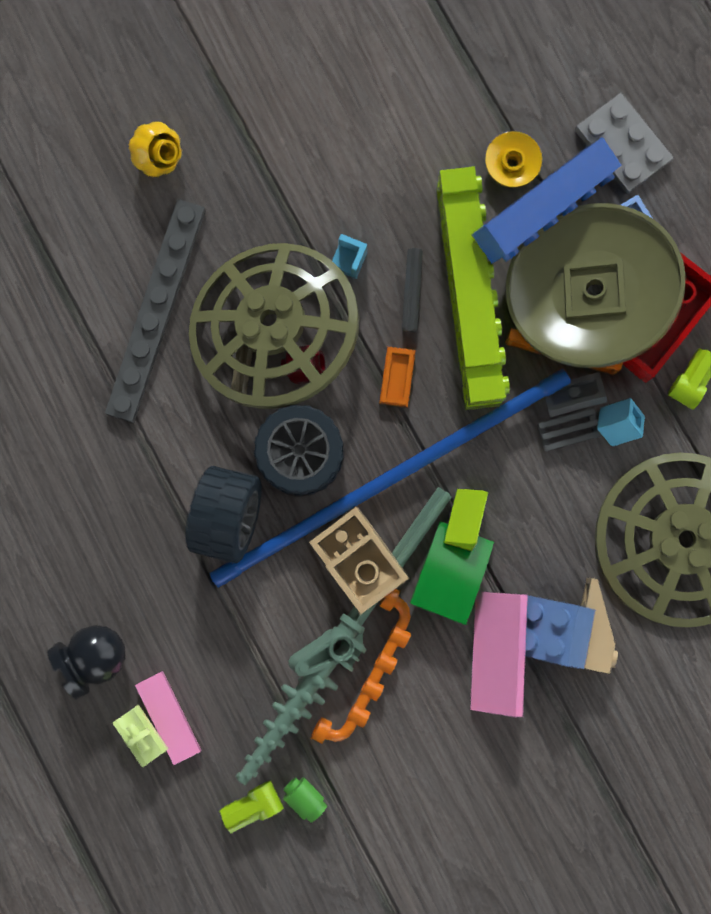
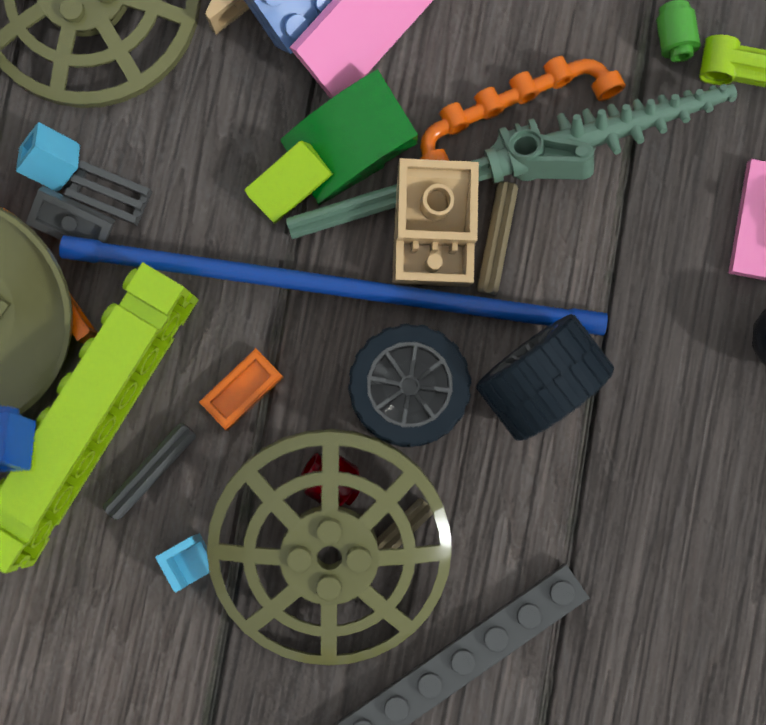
camera: 140 degrees left, 0 degrees up
(316, 583) = (497, 238): none -> dark tan axle

